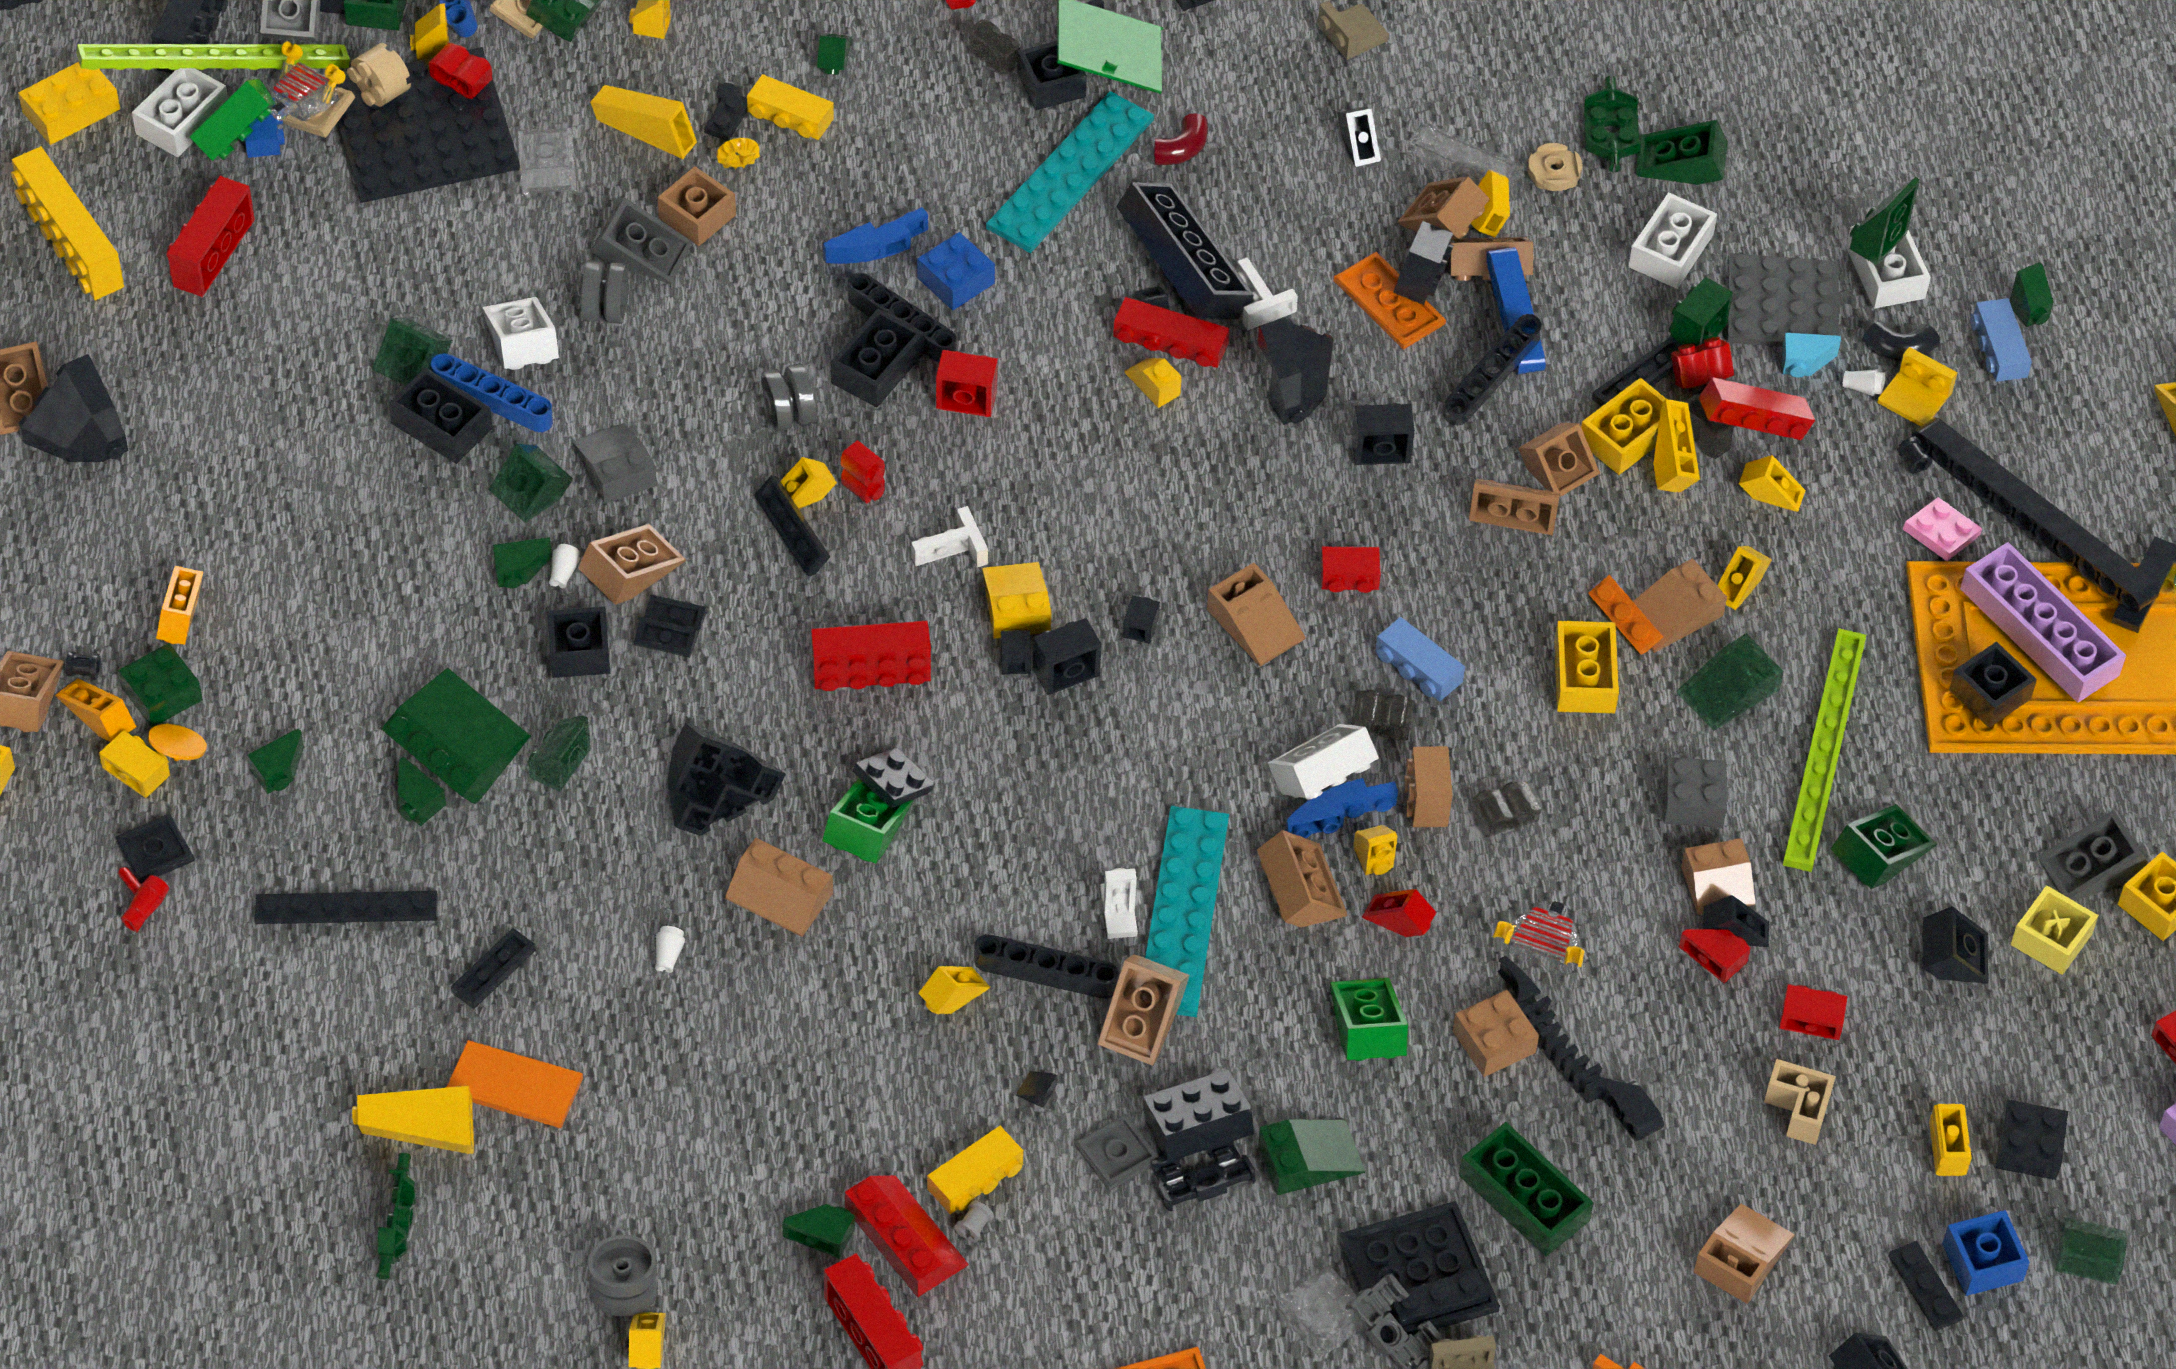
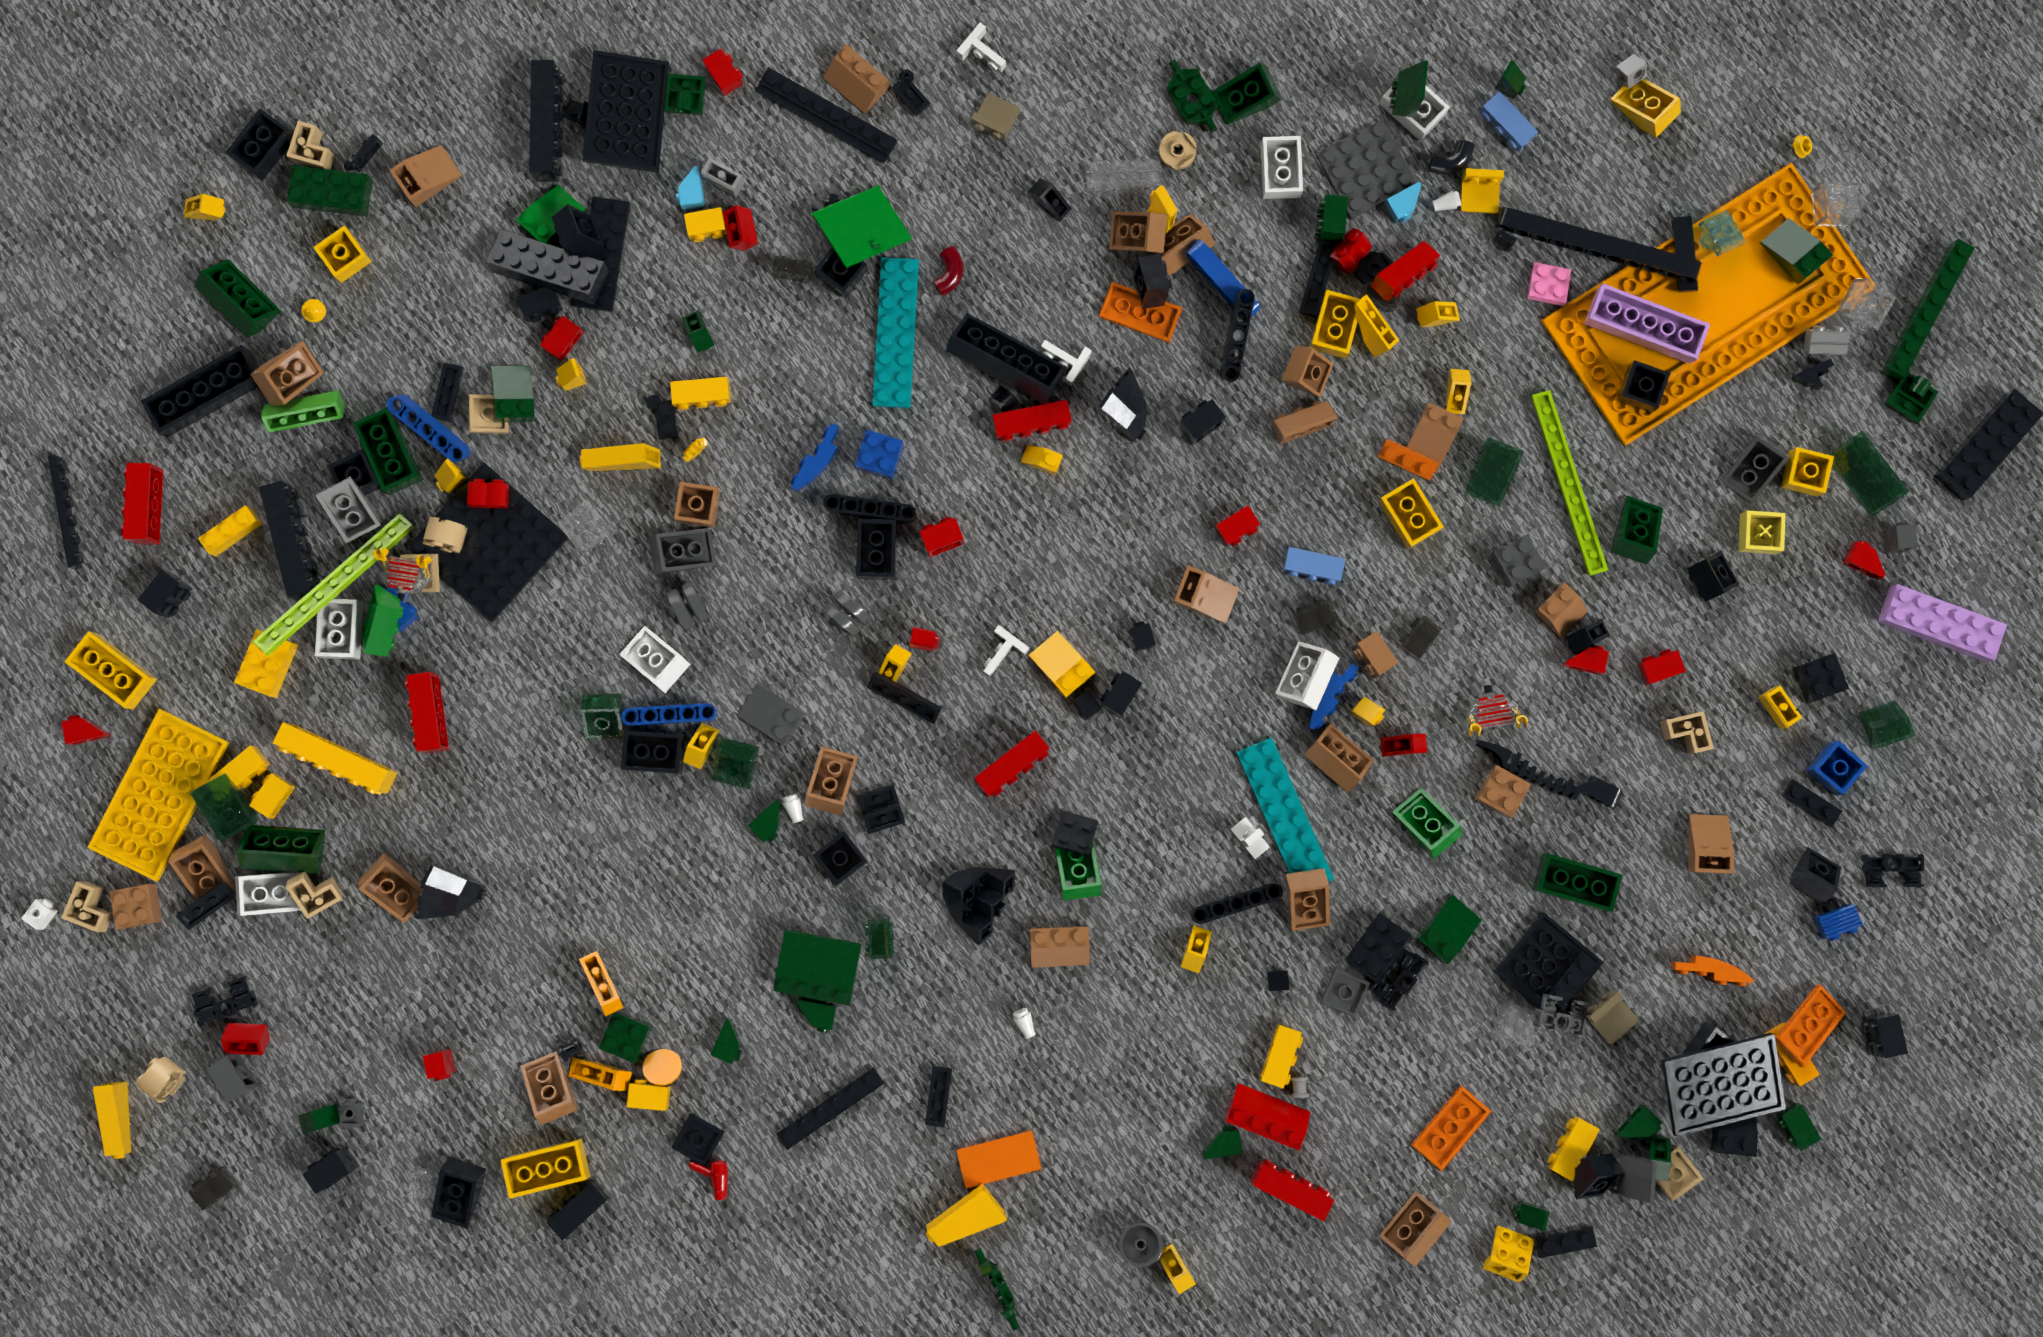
camera: 30 degrees left, 30 degrees up
(497, 440) = (700, 746): none -> yellow slope

